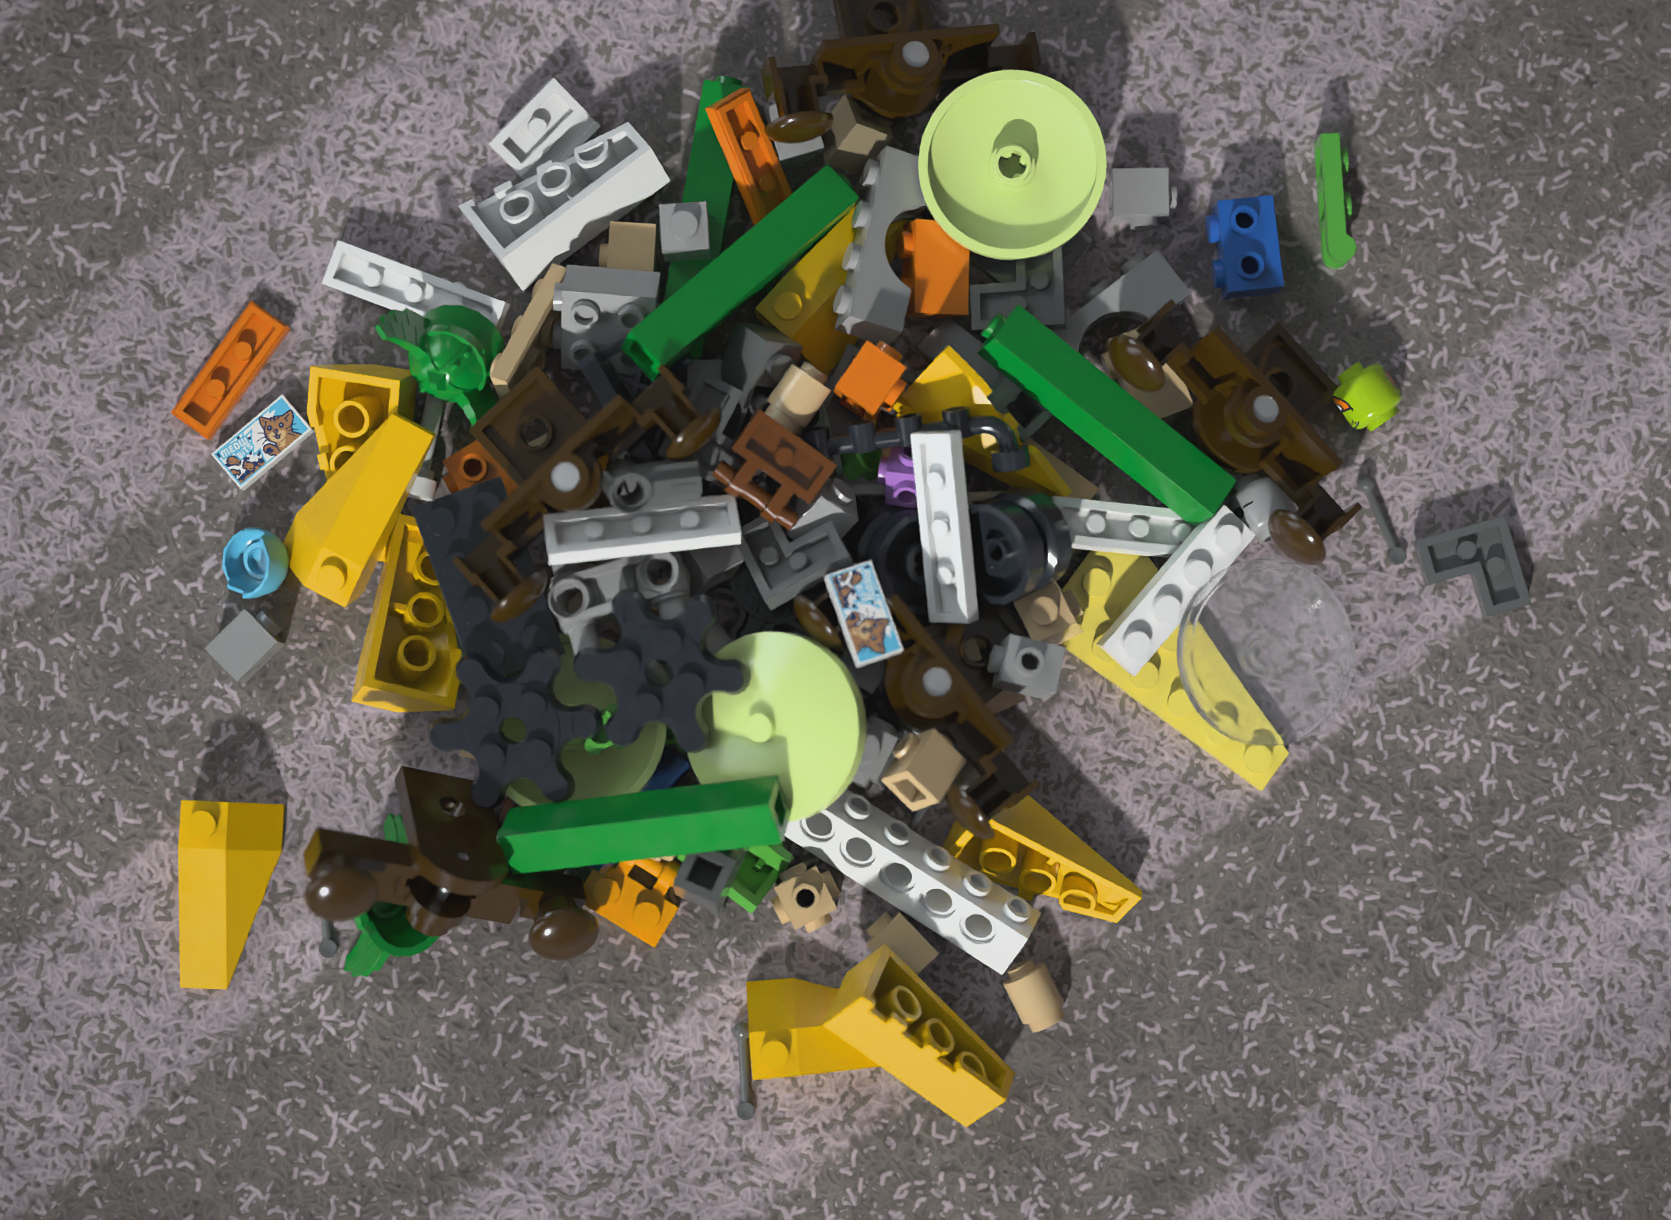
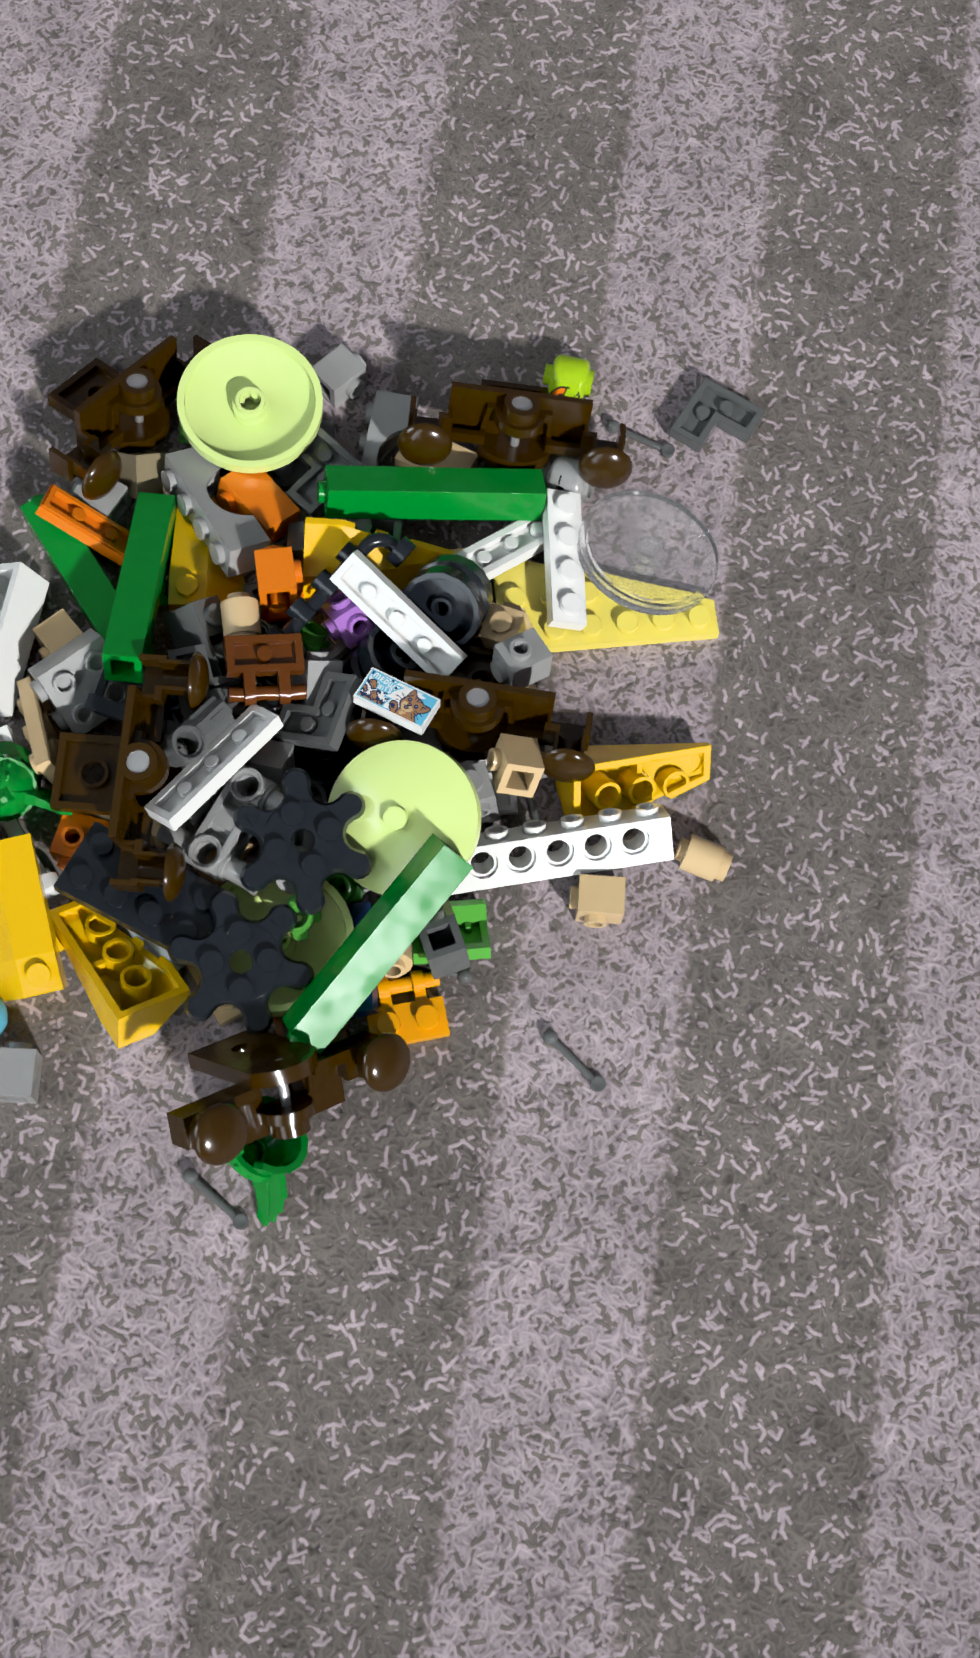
camera: 45 degrees left, 15 degrees down
(223, 876) = (129, 1231): yellow wedge -> none
(685, 231) = (85, 590): light grey brick -> none
(789, 1031) = (599, 990): yellow wedge -> none
(801, 878) = (511, 930): tan brick -> none
(917, 1038) = (662, 933): yellow wedge -> none
(1245, 247) = (426, 355): blue brick -> none
(1333, 203) = (450, 295): bright green plate -> none

